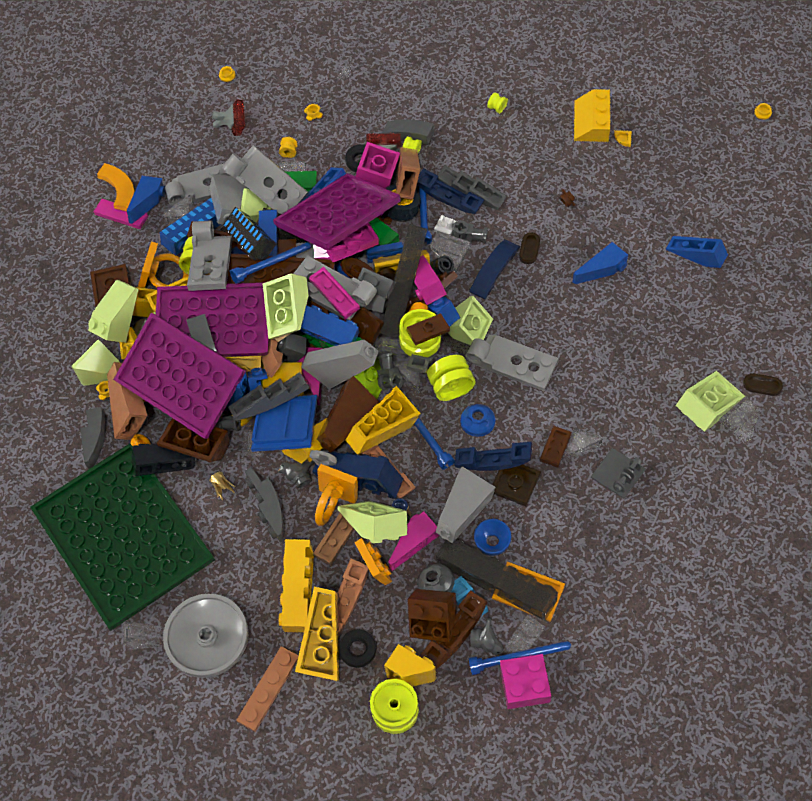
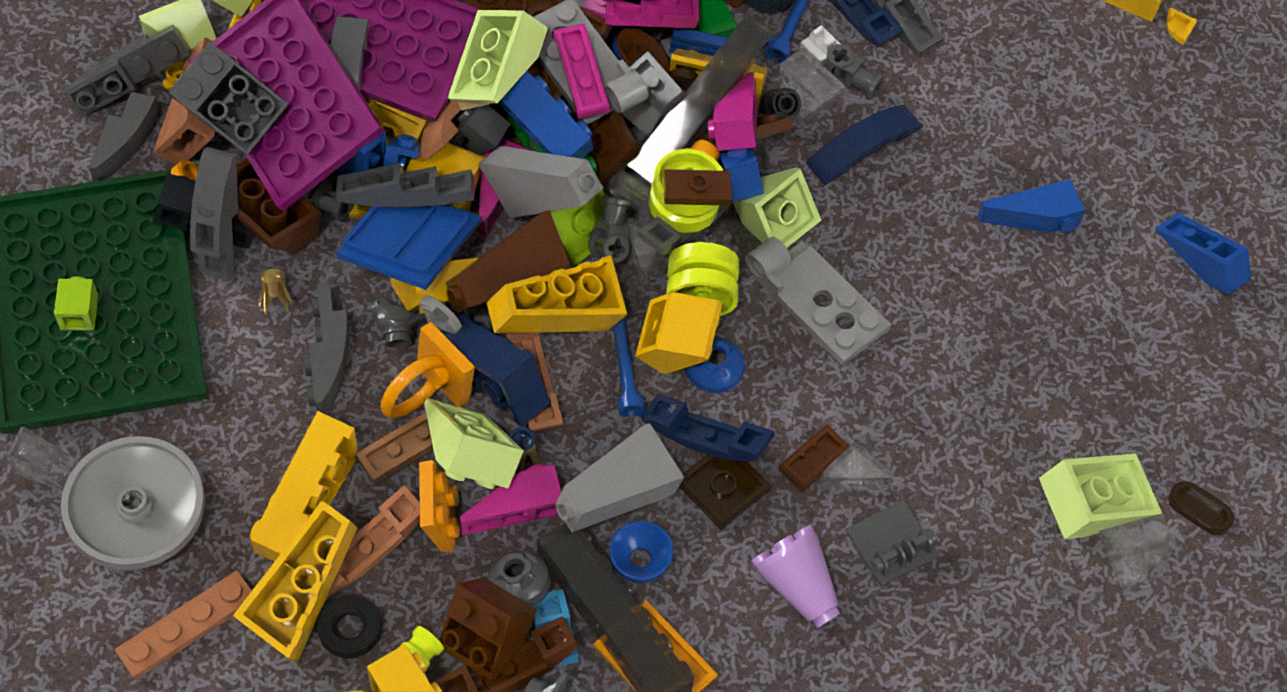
camera: 15 degrees right, 0 degrees up
(74, 399) = (124, 69): none -> dark grey slope
(117, 540) = (76, 304): none -> lime brick
(149, 390) = (228, 98): none -> dark grey slope
(170, 456) = (212, 213): none -> dark grey slope
(402, 638) = (424, 644): none -> neon yellow wheel
(452, 410) = (678, 331): none -> yellow slope
(529, 248) = (936, 135): dark brown tile -> none
(567, 198) = (1036, 82): reddish brown plate -> none
(582, 511) = (801, 575): none -> lavender cone

